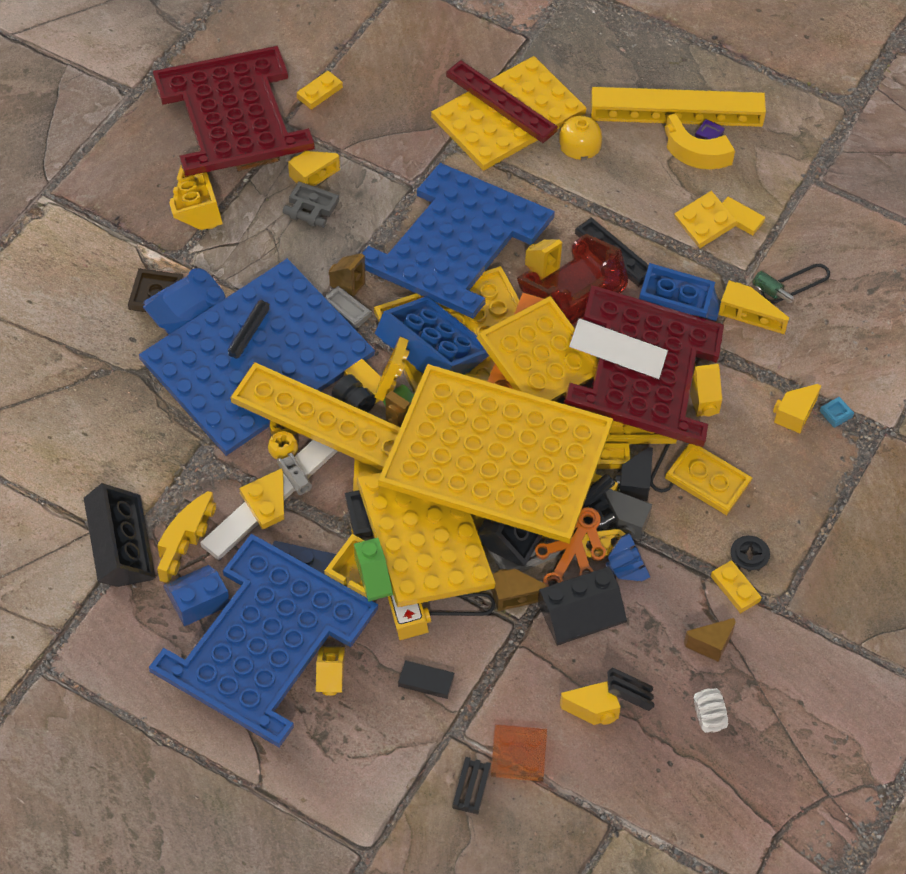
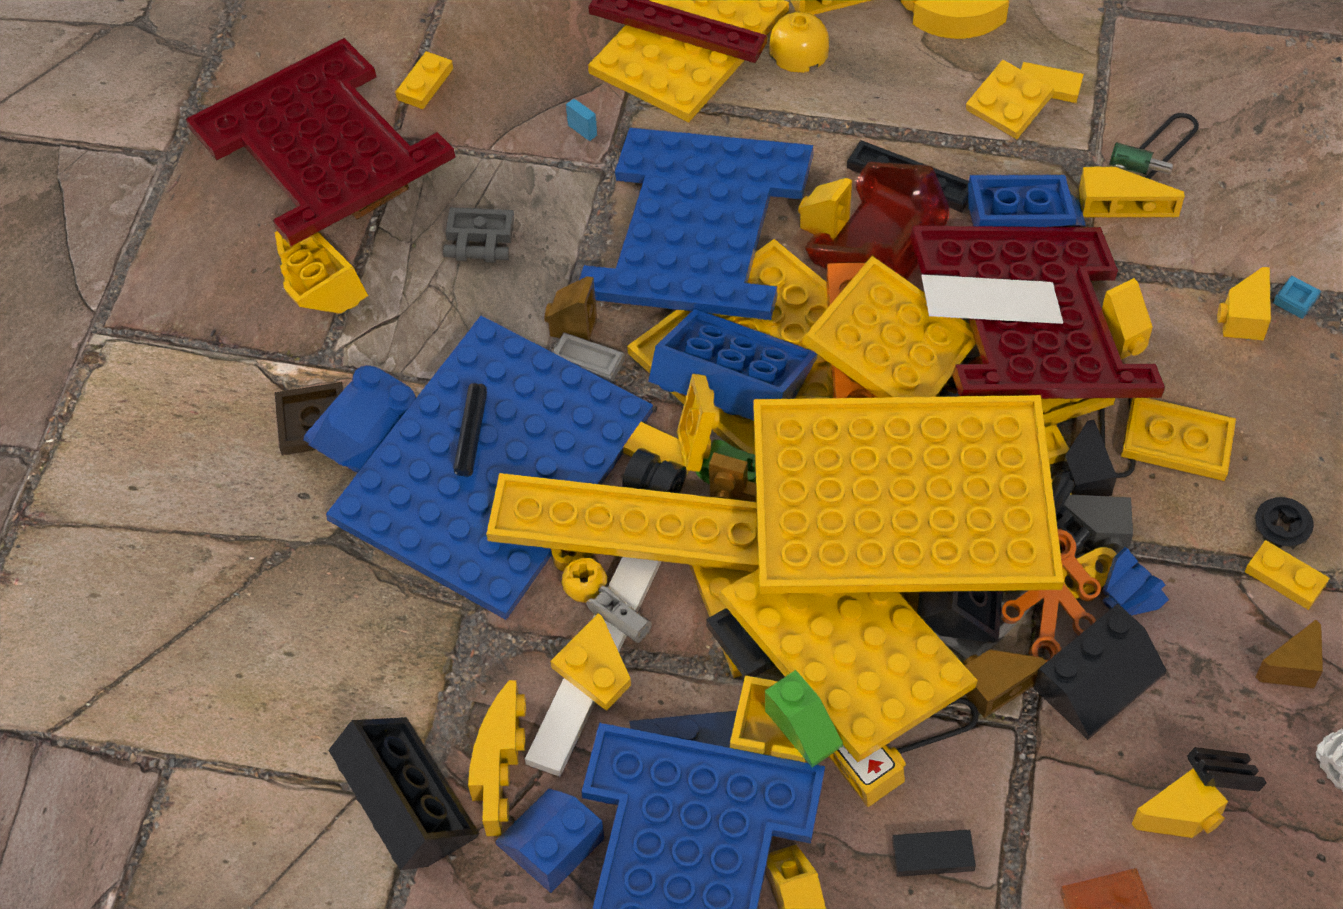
camera: 15 degrees left, 0 degrees up
(313, 167) = (461, 182): yellow slope -> none
(410, 147) = (581, 119): none -> dark azure tile

